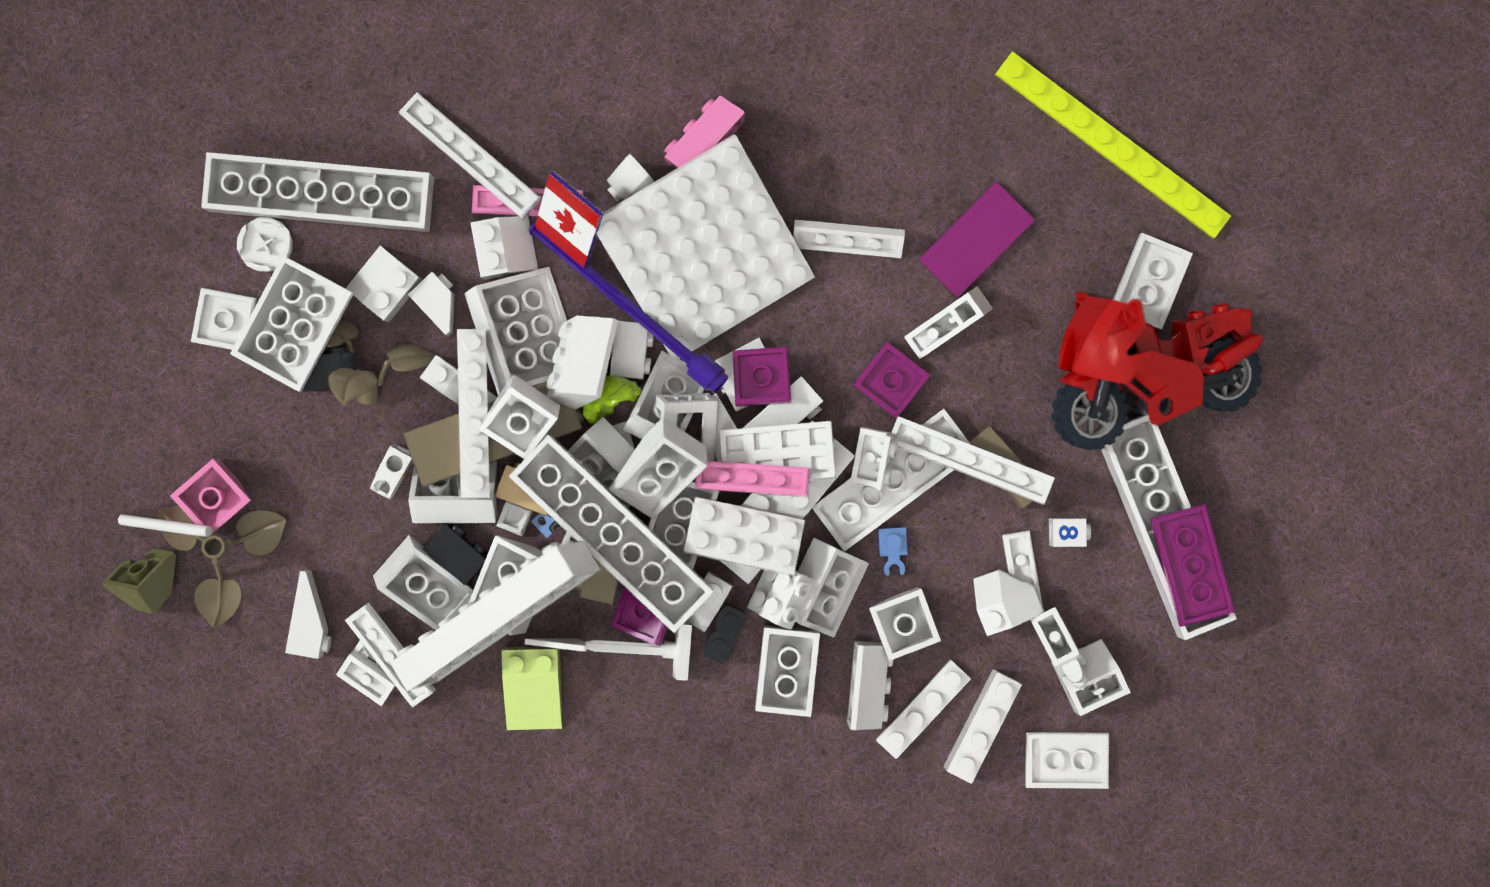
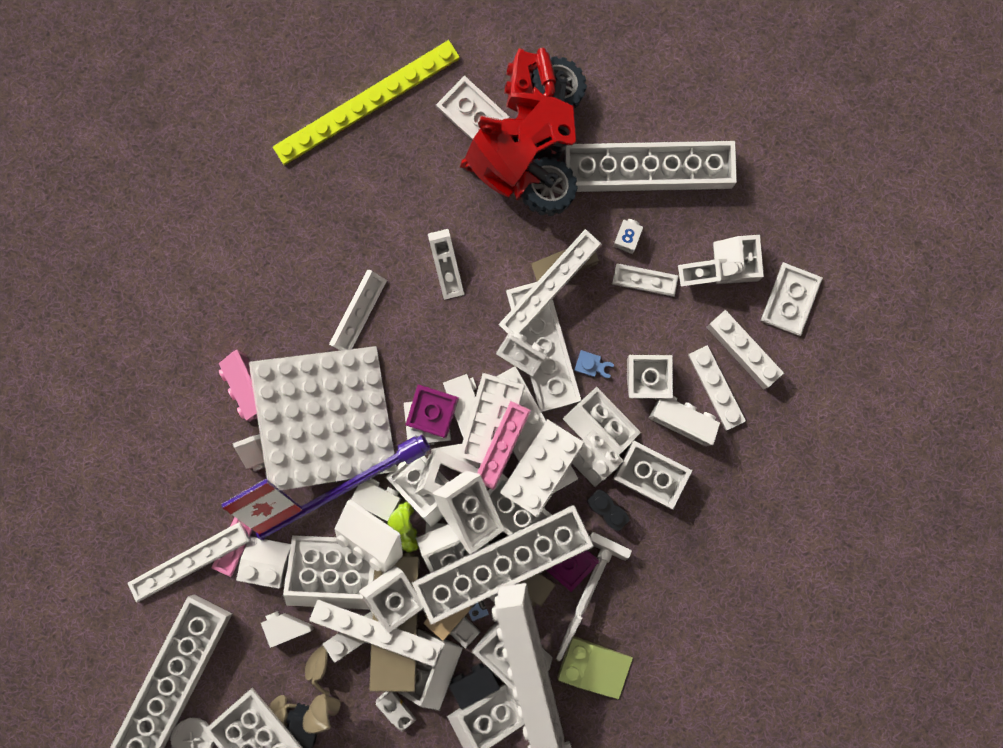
camera: 60 degrees left, 5 degrees down
(383, 284) = (256, 662): white slope -> none
(706, 612) = (587, 517): white slope -> none
(891, 380) = (471, 320): magenta plate -> none
(976, 239) = (395, 222): magenta tile -> none
(1005, 601) = (660, 299): white slope -> none
(1192, 565) = (684, 157): magenta tile -> none

